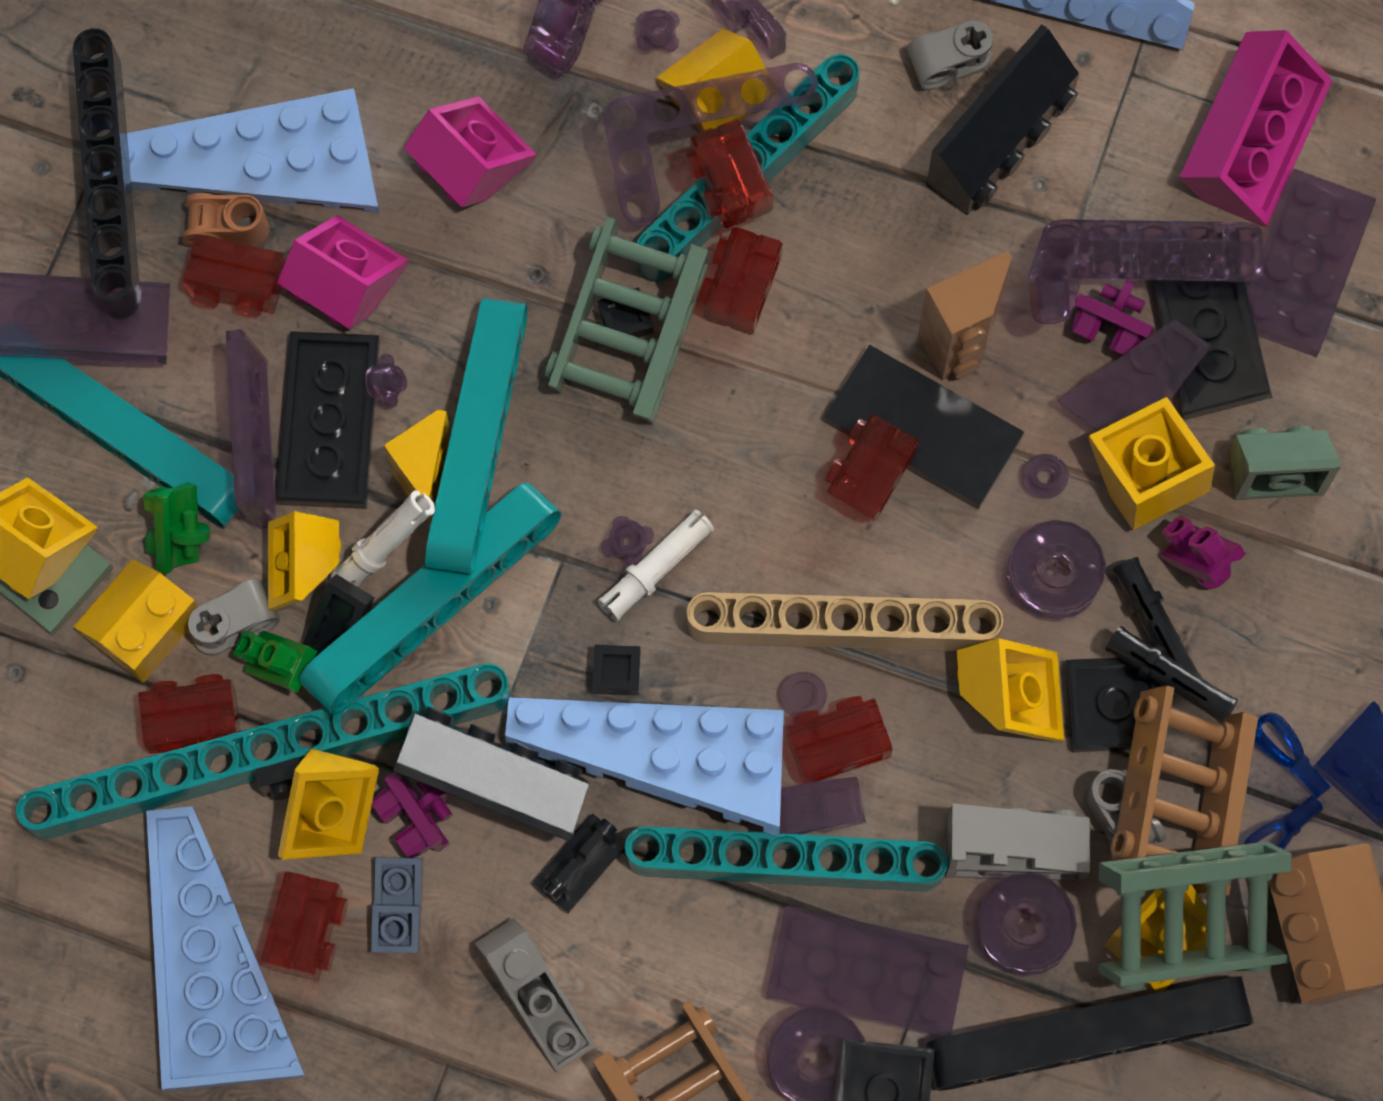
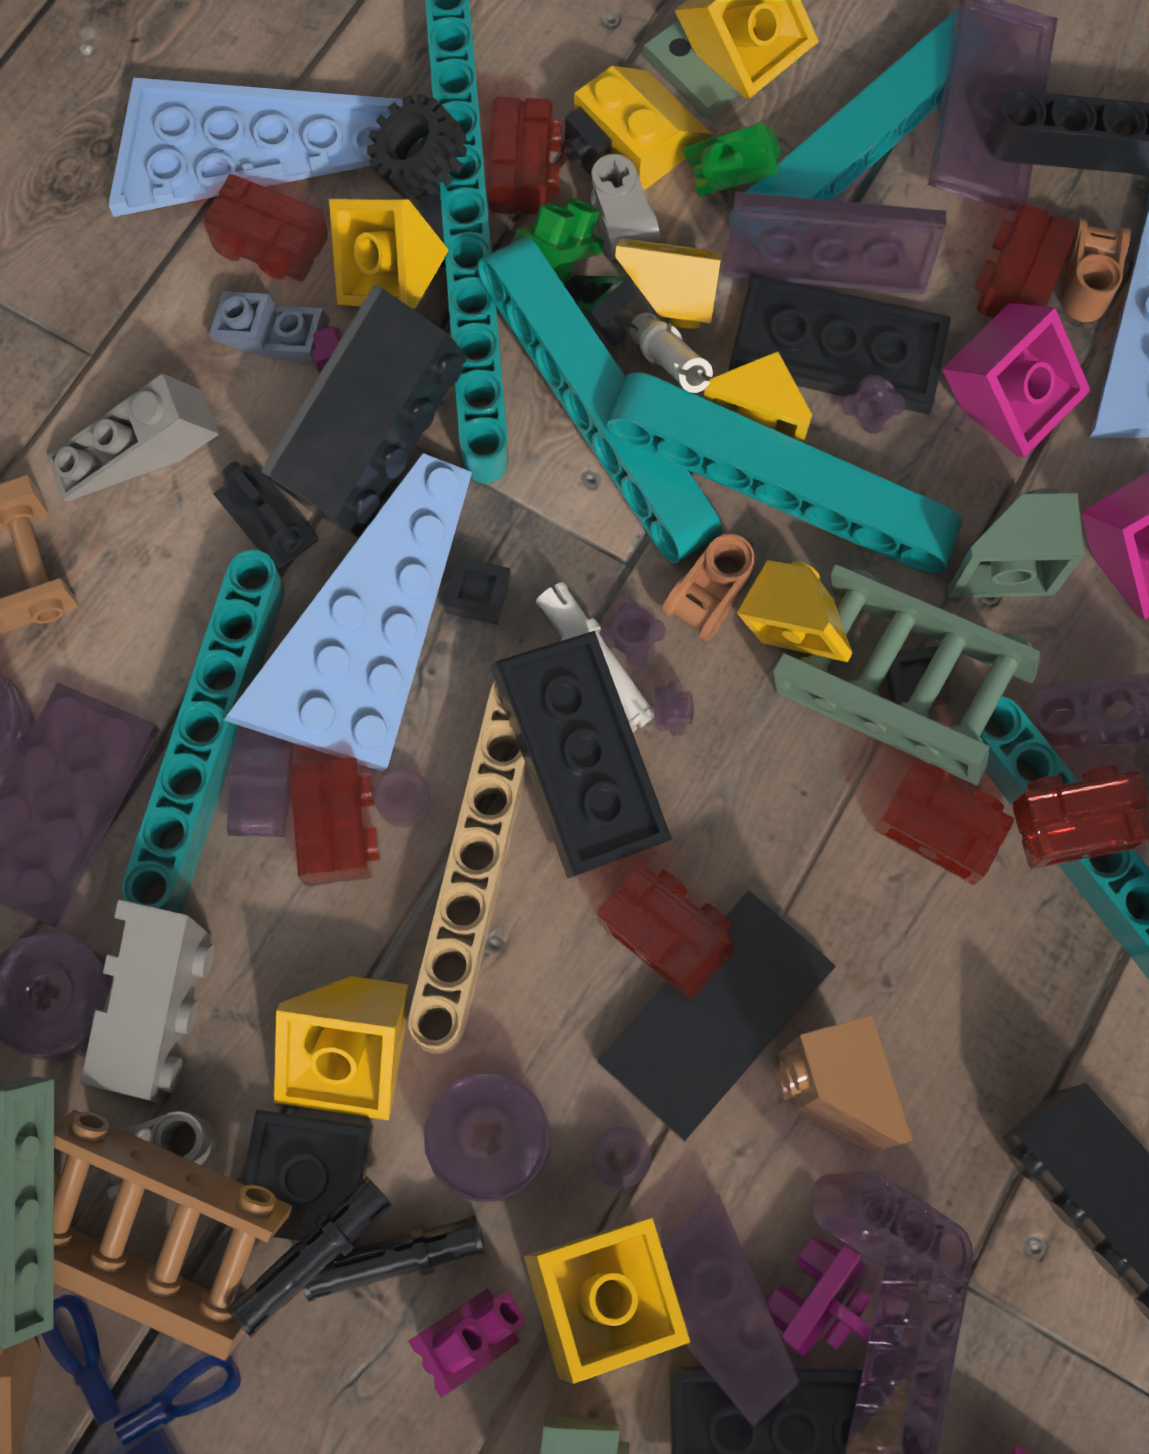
camera: 100 degrees right, 0 degrees up
(169, 660) = (584, 140): none -> black plate
(210, 822) = (402, 131): none -> black tyre
(505, 245) = (1025, 549): none -> sand green slope
(581, 485) = (705, 593): none -> nougat piece
(592, 410) = (795, 611): none -> yellow slope
(688, 496) = (673, 708): none -> plate
(745, 555) = (580, 753): none -> black tile

